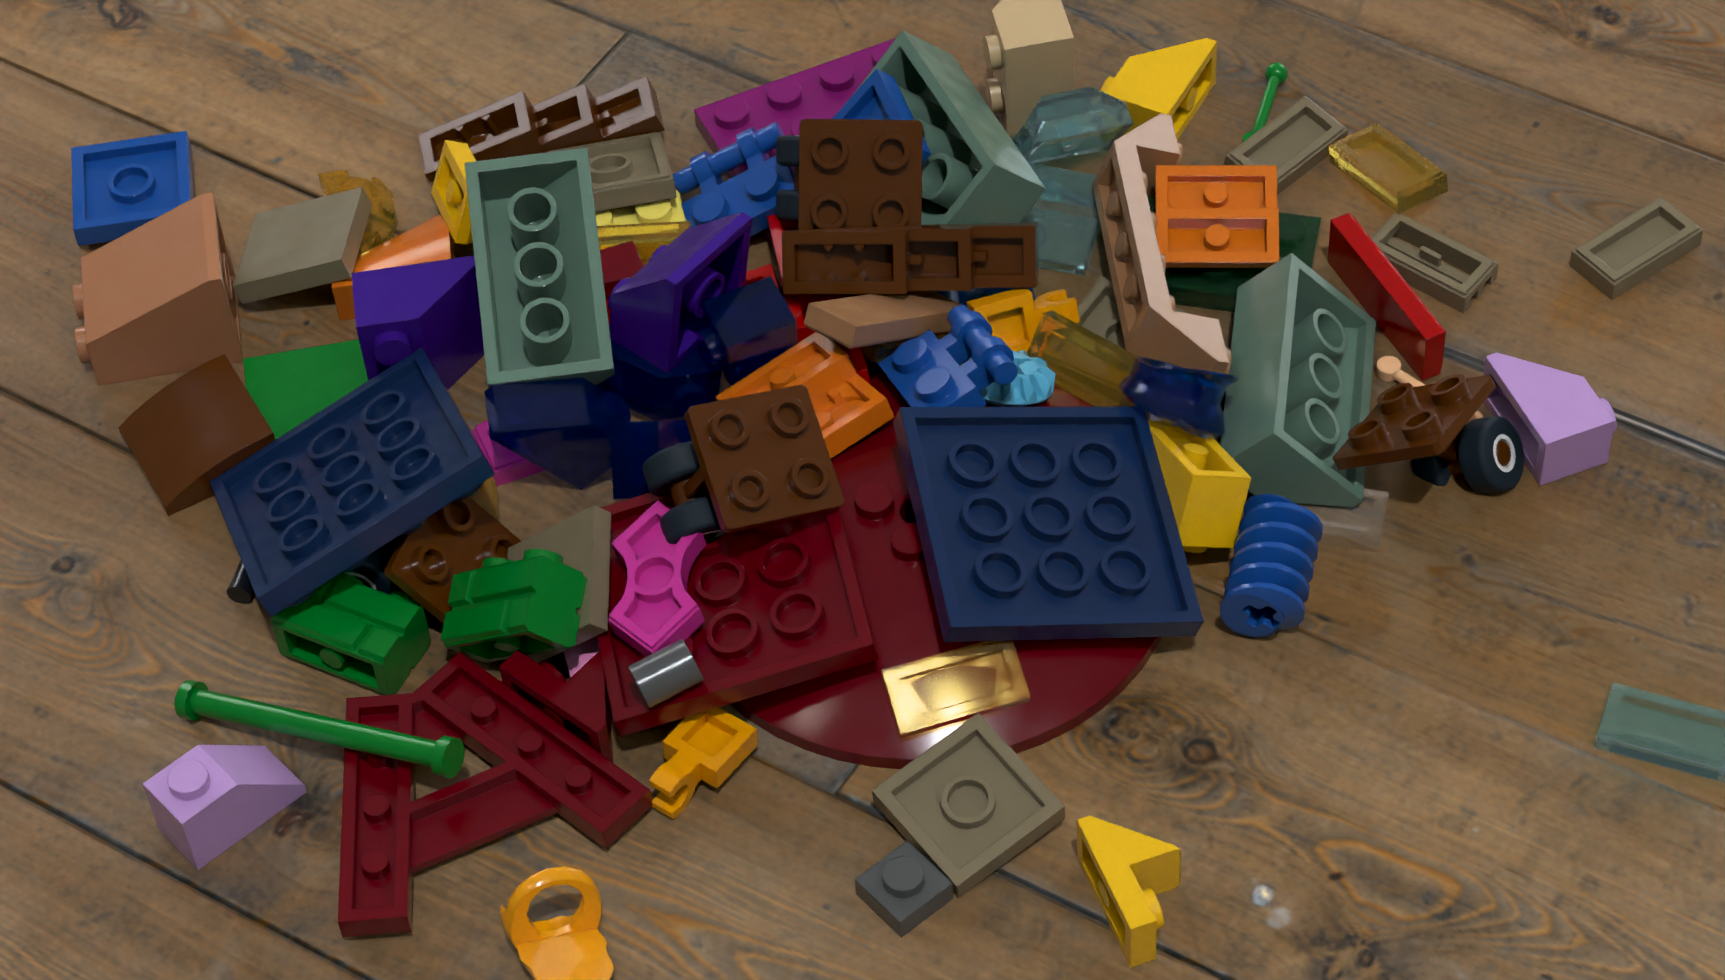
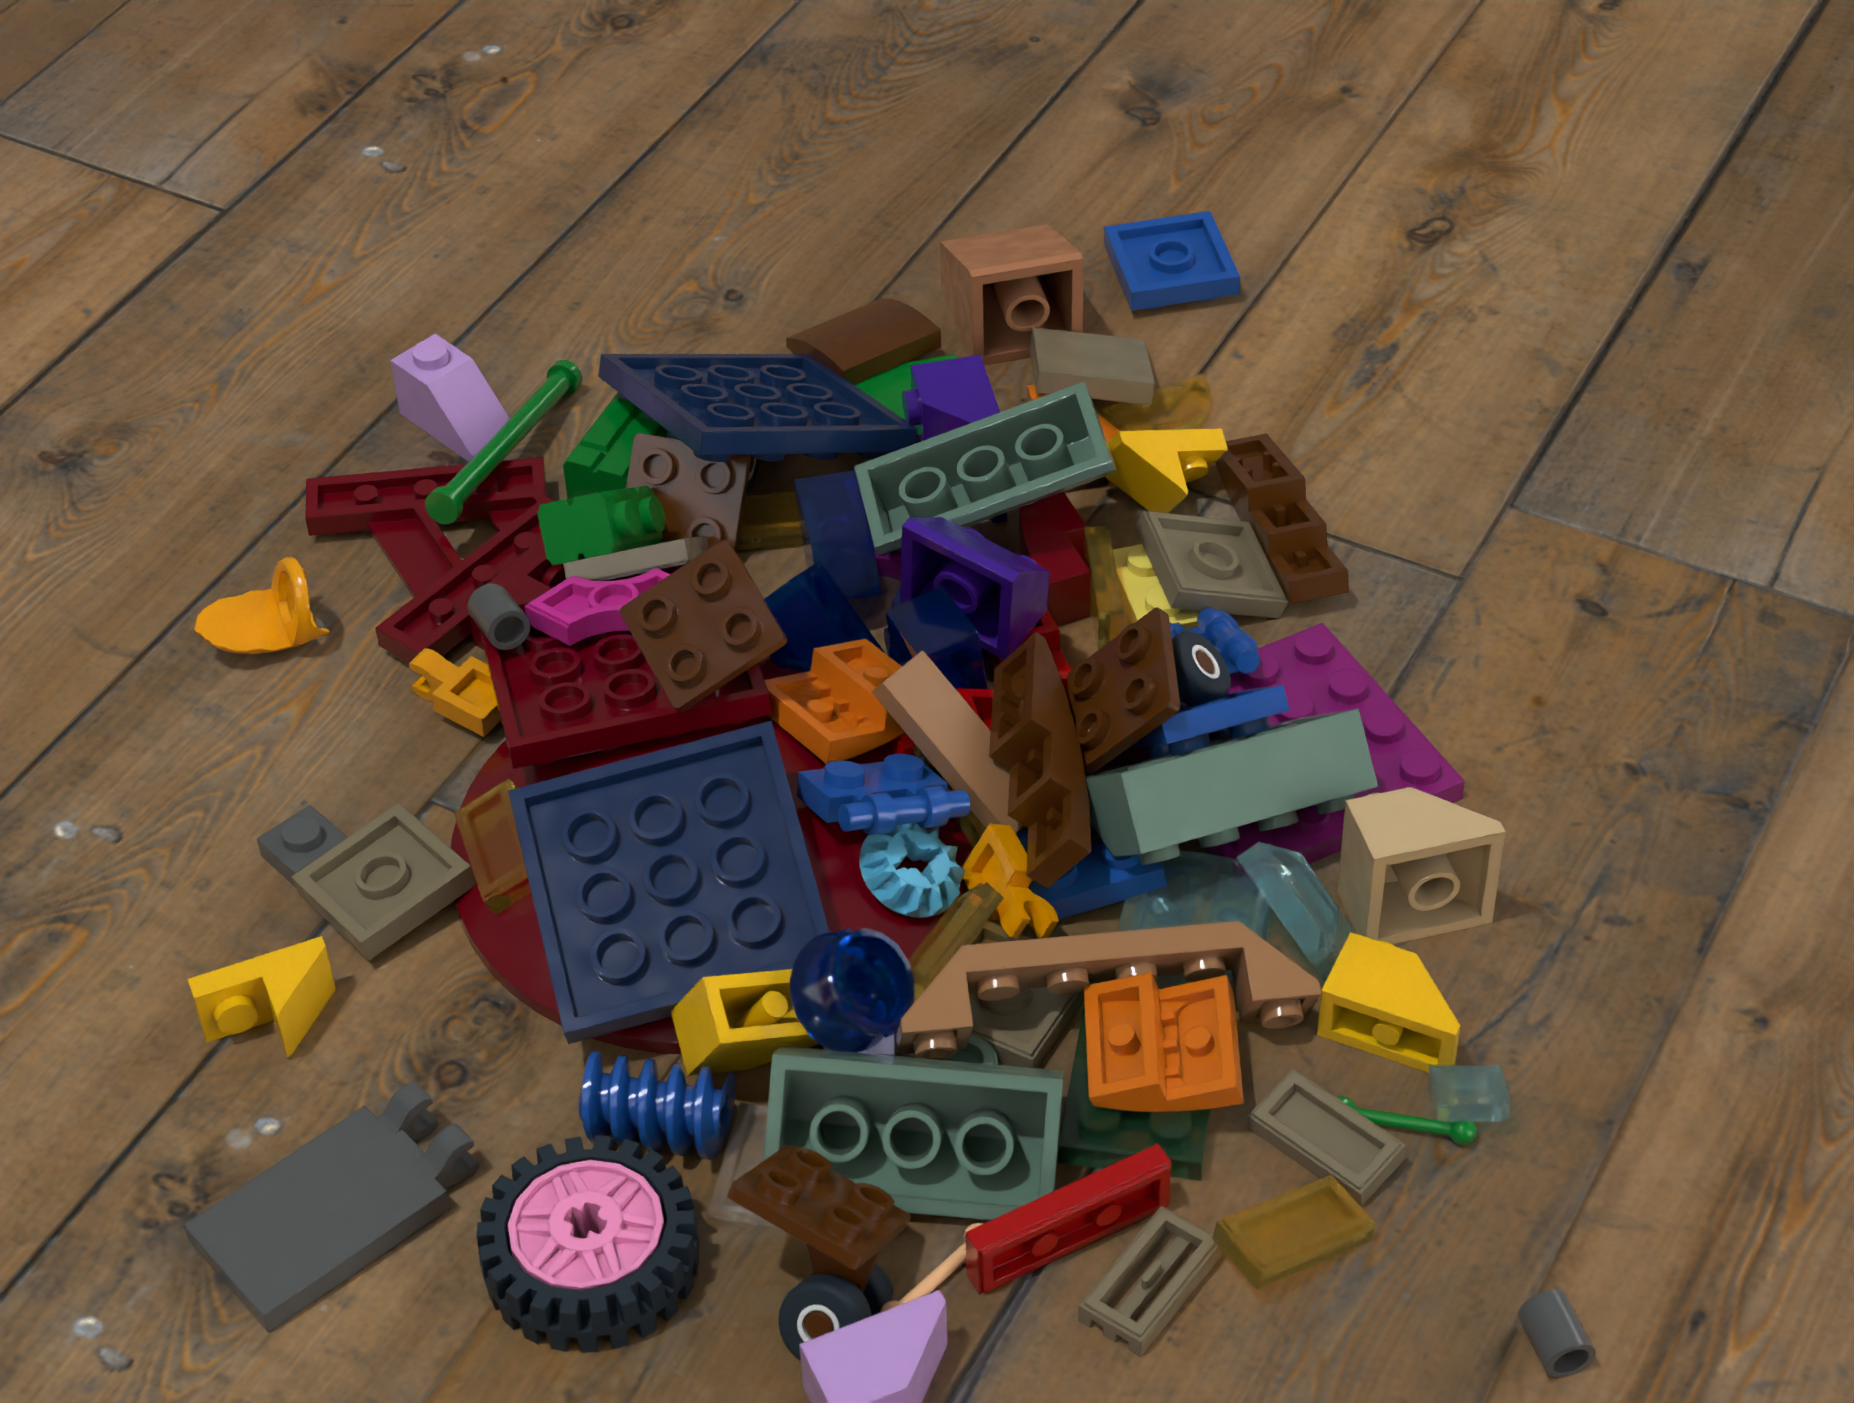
camera: 85 degrees right, 5 degrees down
(1247, 60) = (1469, 1093): none -> clear light blue tile
(1373, 821) = (332, 1206): none -> dark grey tile
(1418, 615) = (588, 1243): none -> wheel
(1476, 34) = (1556, 1333): none -> dark grey hinge

